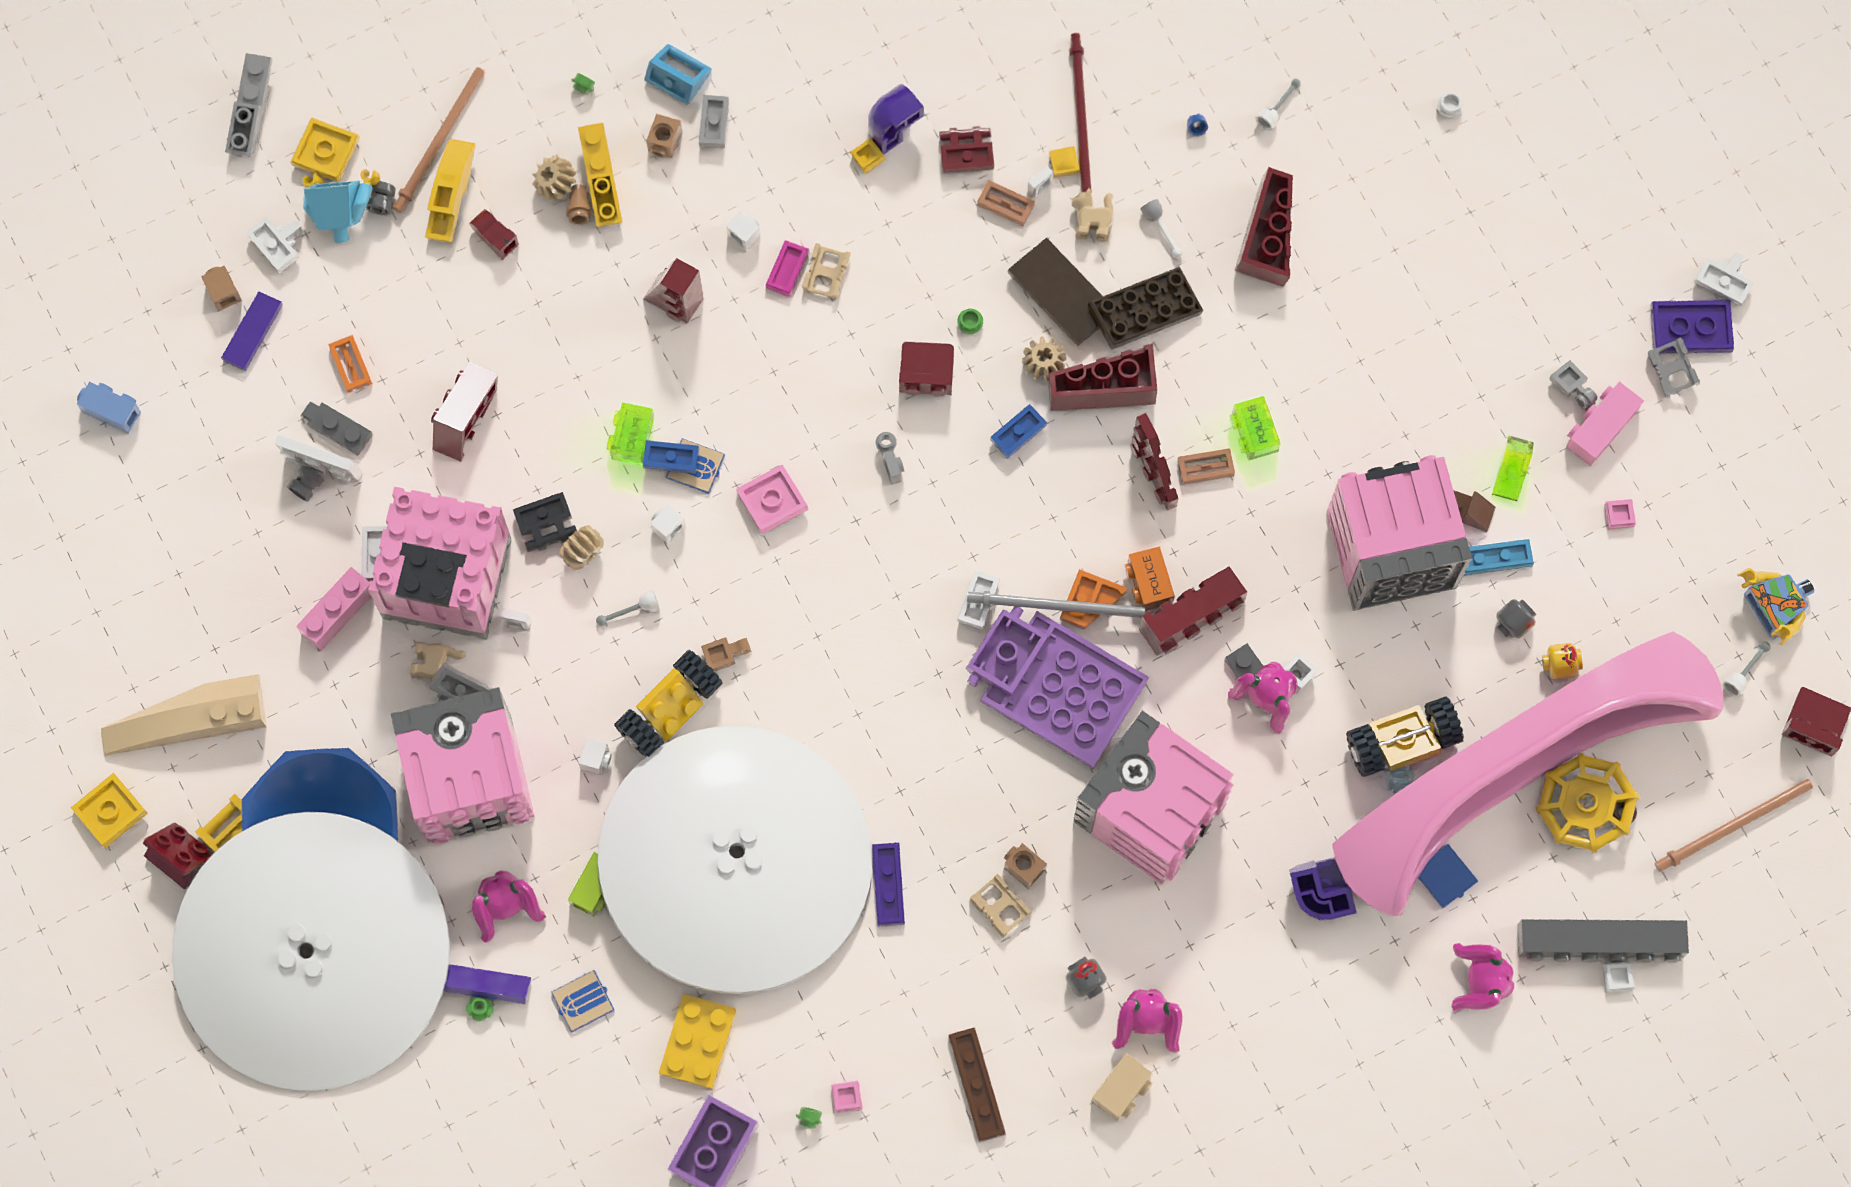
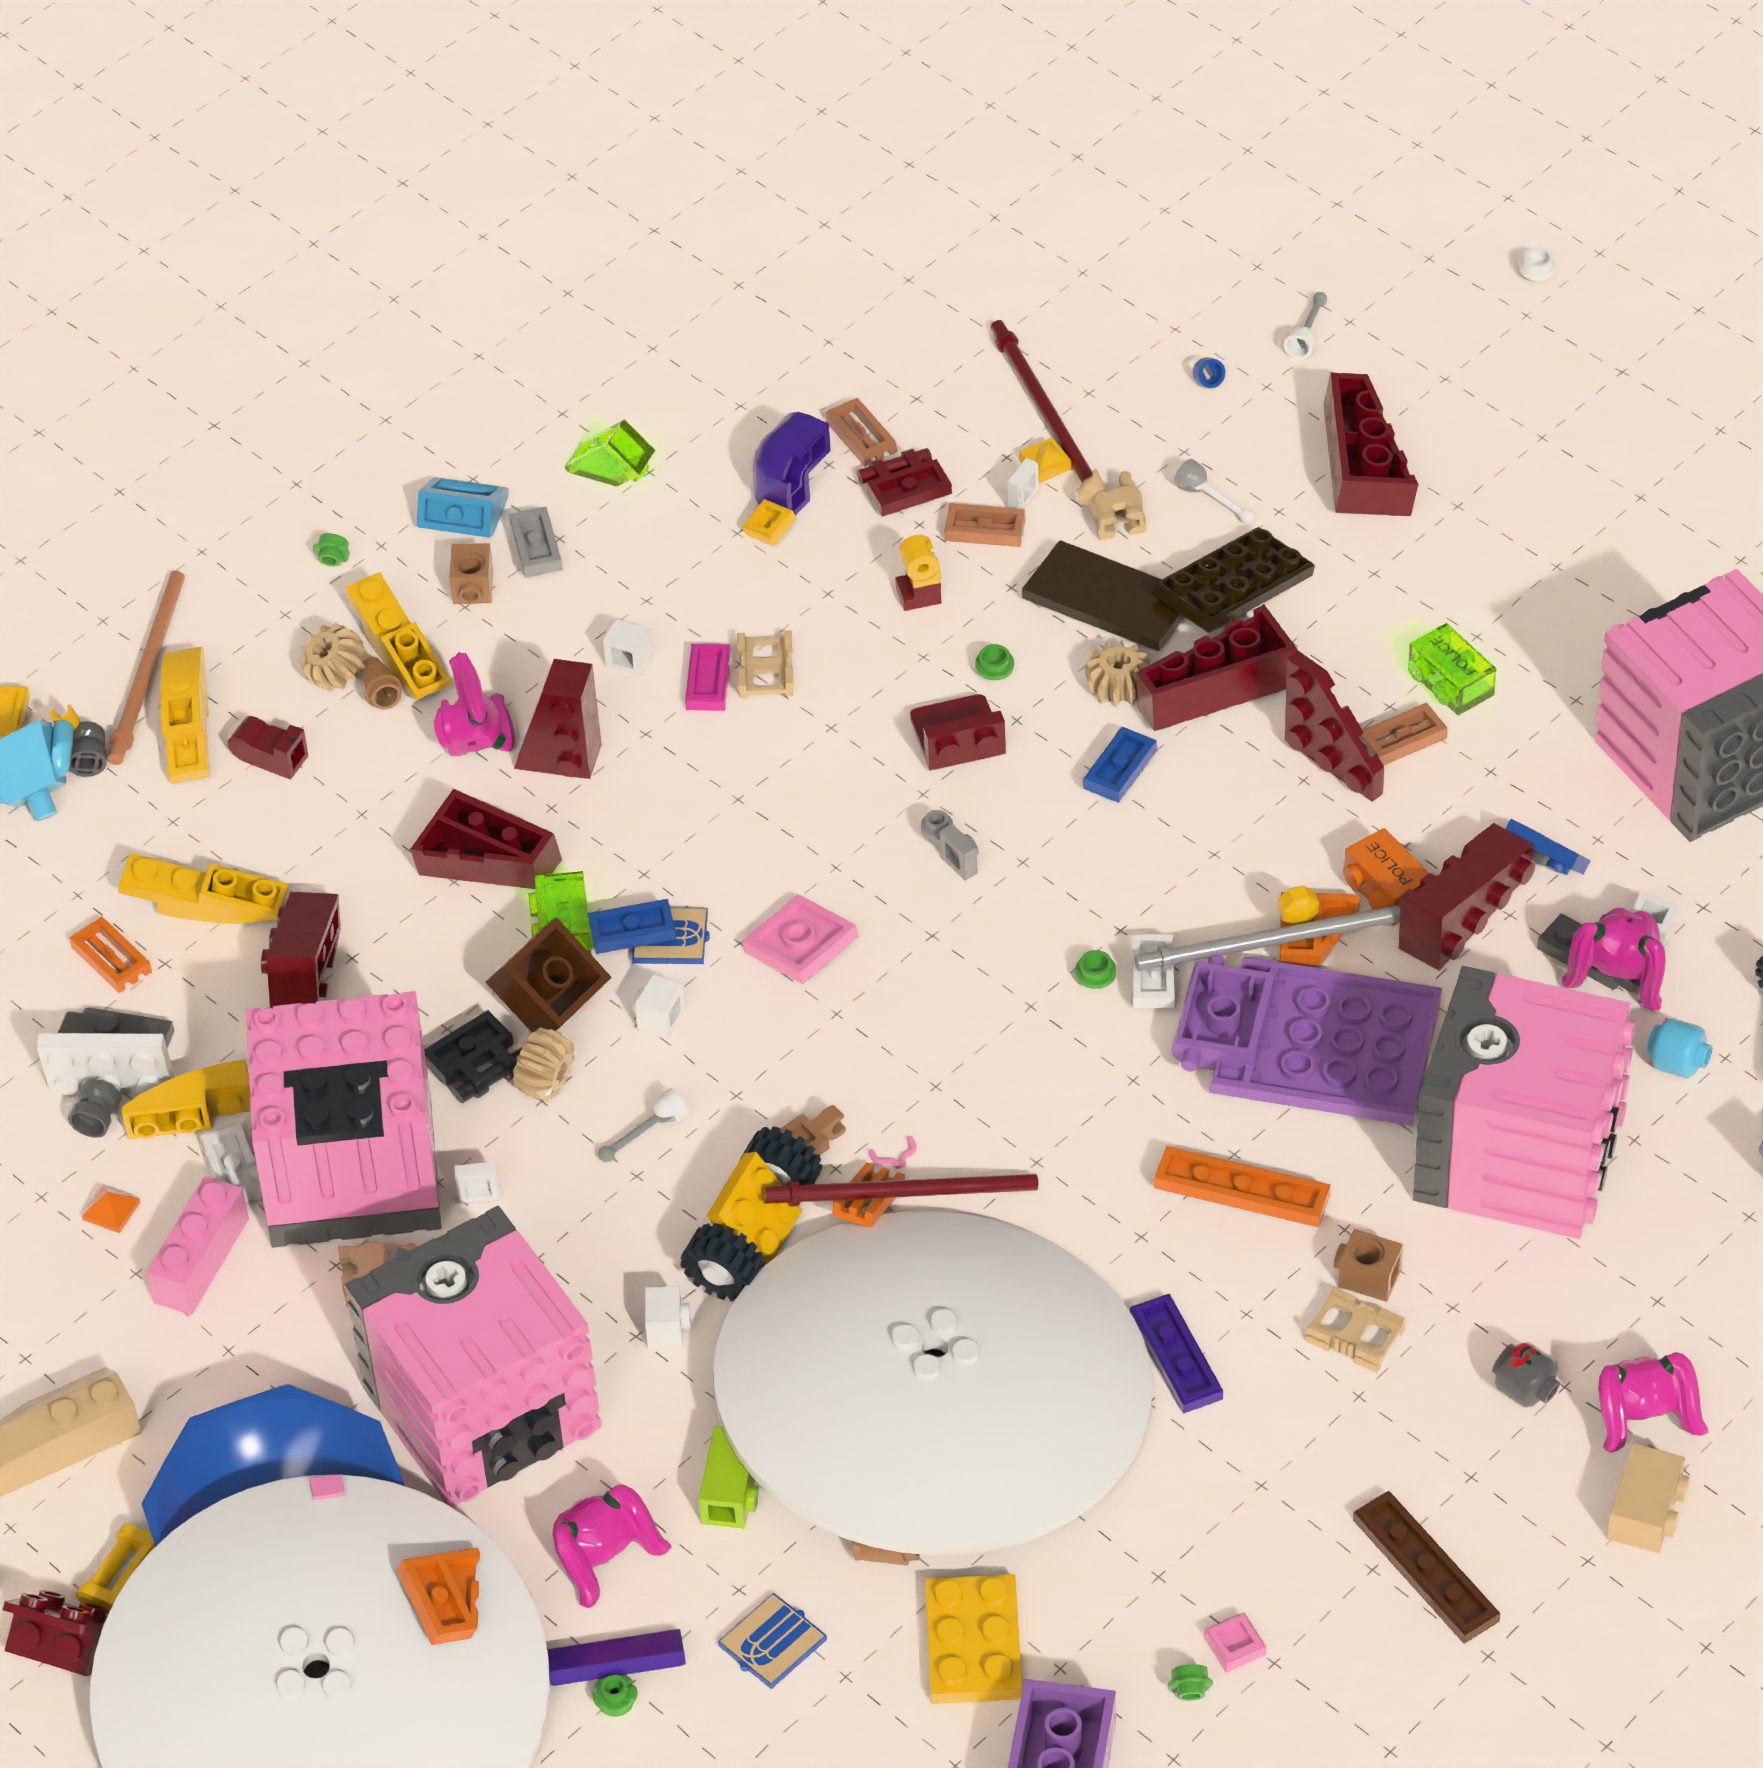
camera: 15 degrees left, 25 degrees down
(295, 558) = (111, 1209): none -> orange slope
(349, 829) = (327, 1487): none -> bright pink window
(359, 498) = (189, 1101): none -> yellow slope
(391, 929) = (443, 1593): none -> orange wing
(417, 338) = (212, 896): none -> yellow slope
(599, 363) = (483, 845): none -> dark red wedge
(603, 487) = (548, 978): none -> reddish brown brick
(628, 261) = (475, 718): none -> dark pink hair
(757, 697) = (878, 1206): none -> orange tile
(760, 716) = (795, 1193): none -> dark red bar
(774, 687) = (903, 1157): none -> bright pink piece
(784, 67) = (612, 456): none -> clear neon green slope
(944, 586) = (1095, 969): none -> bright green plate
(945, 237) = (923, 579): none -> leg
(958, 116) = (851, 440): none -> nougat tile
(971, 780) = (1242, 1186): none -> orange plate
(1082, 589) = (1298, 905): none -> yellow tile
(1258, 589) = (1560, 857): none -> blue plate
(1276, 771) = (1679, 1048): none -> medium azure head

